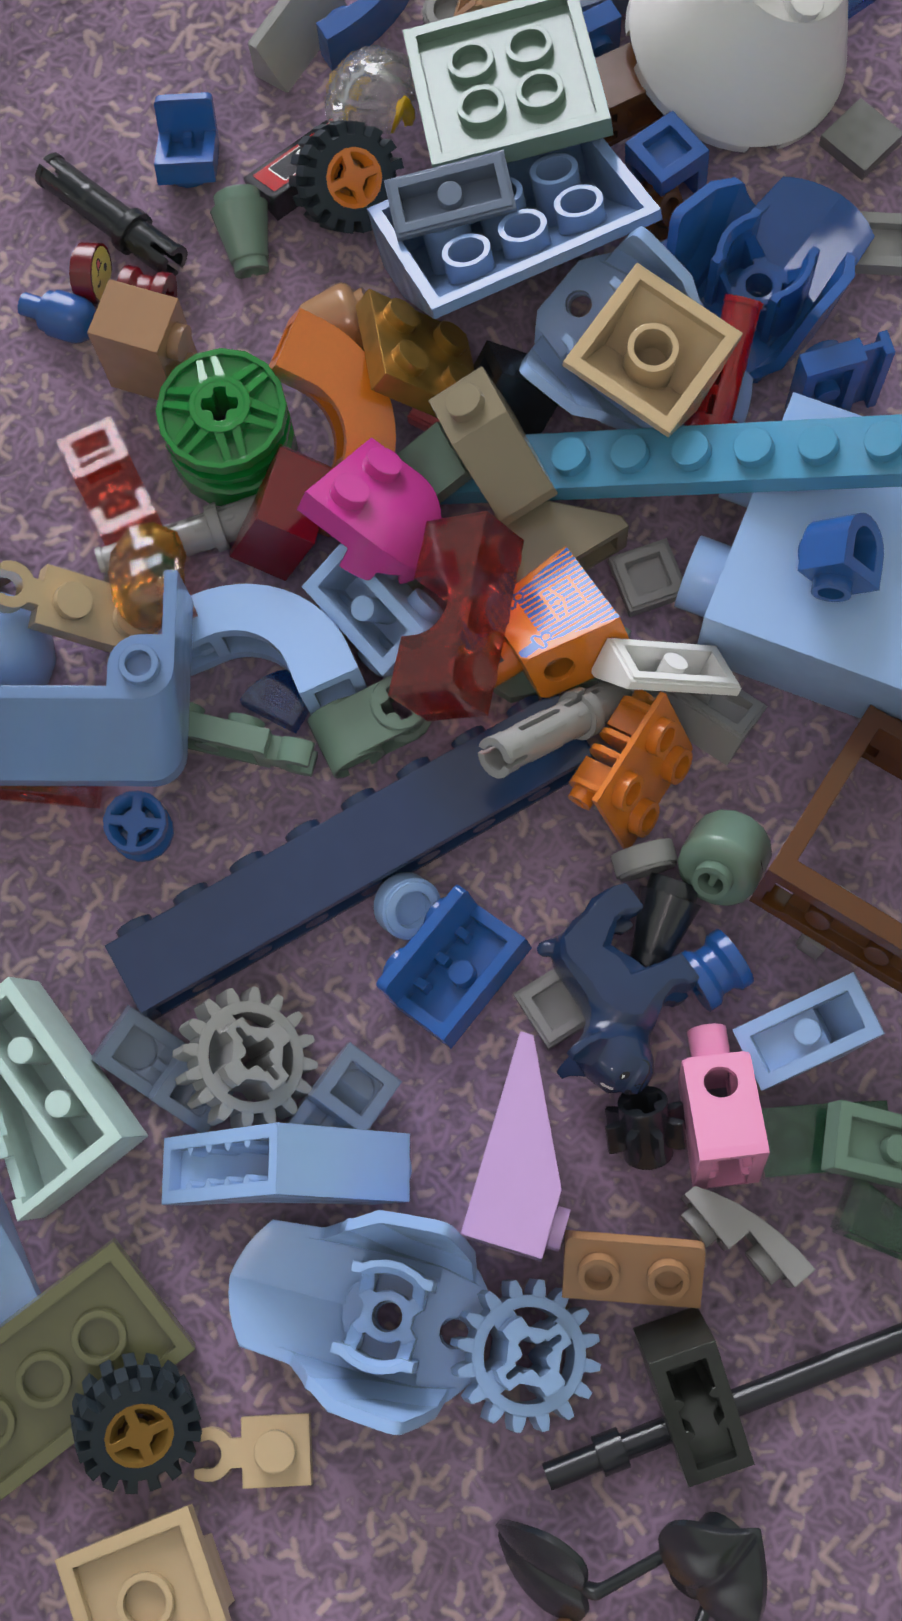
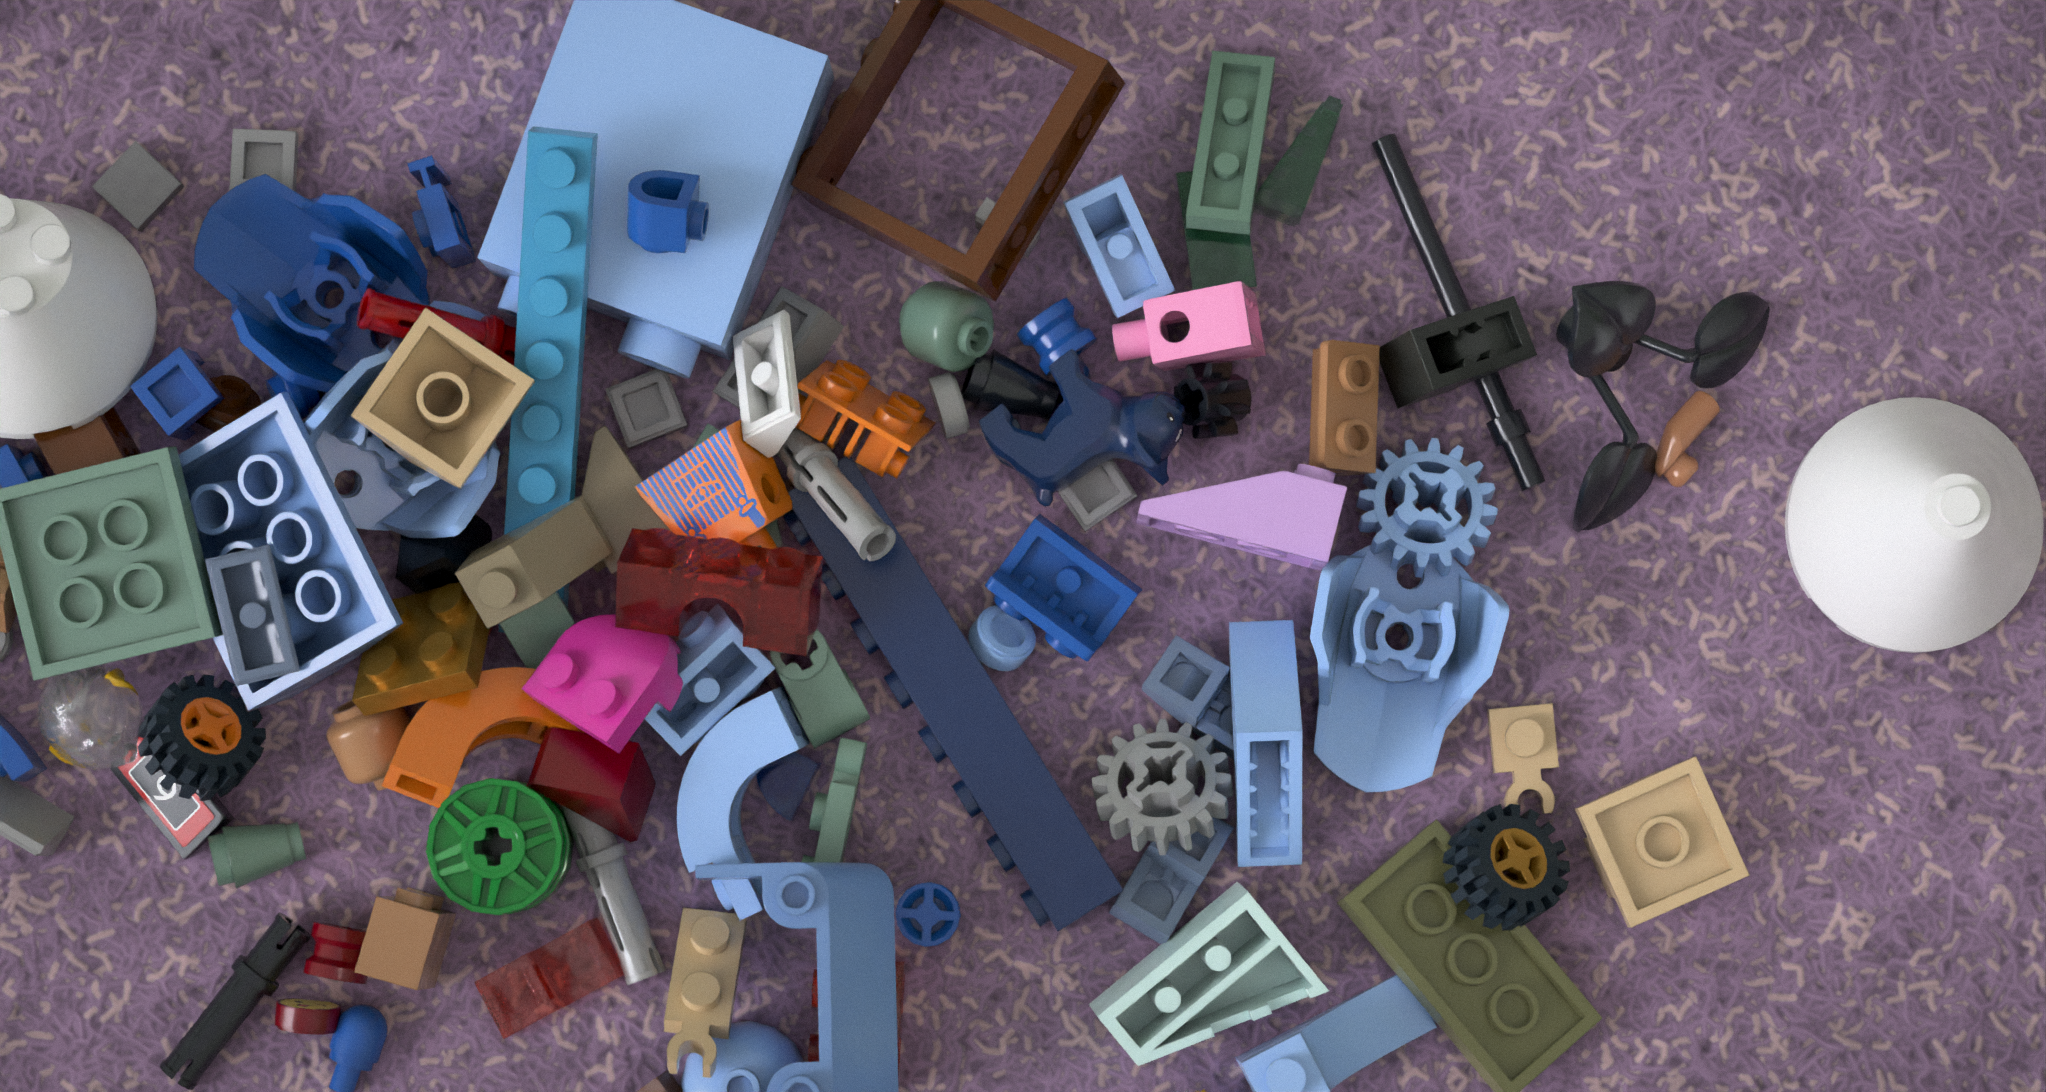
camera: 95 degrees left, 10 degrees up
(138, 573) = (670, 918): clear orange rock -> none
(186, 139) = (149, 921): blue bracket -> none
(727, 1222) = (1299, 321): light grey slope -> none

